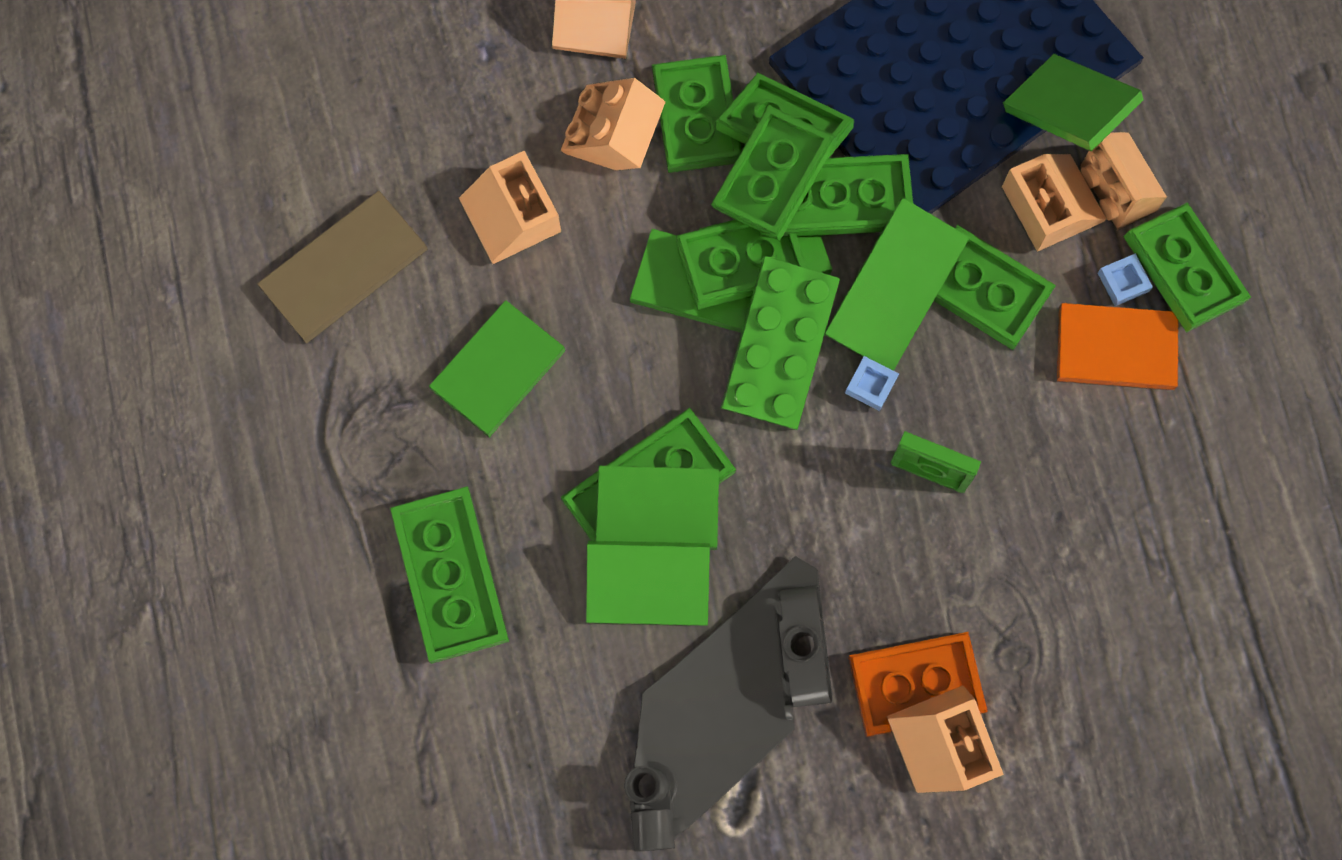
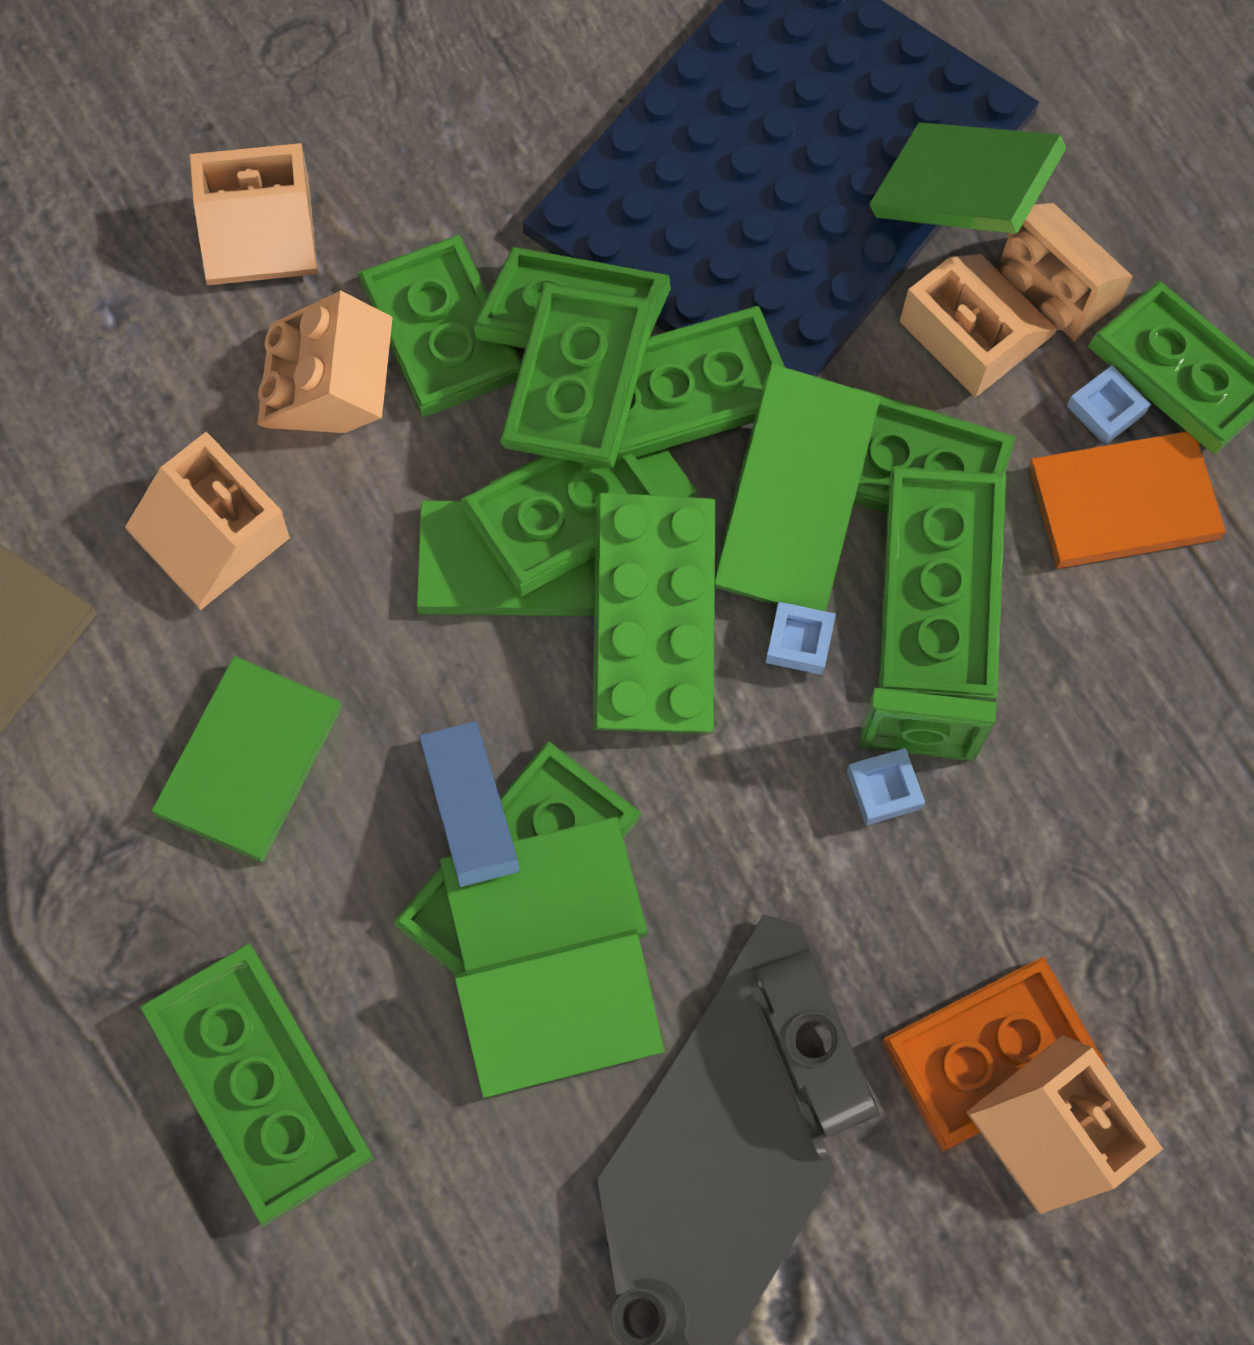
camera: 20 degrees left, 5 degrees down
(627, 435) = (469, 804): none -> medium blue tile
(898, 495) = (885, 786): none -> light blue plate
(976, 371) = (943, 582): none -> bright green tile

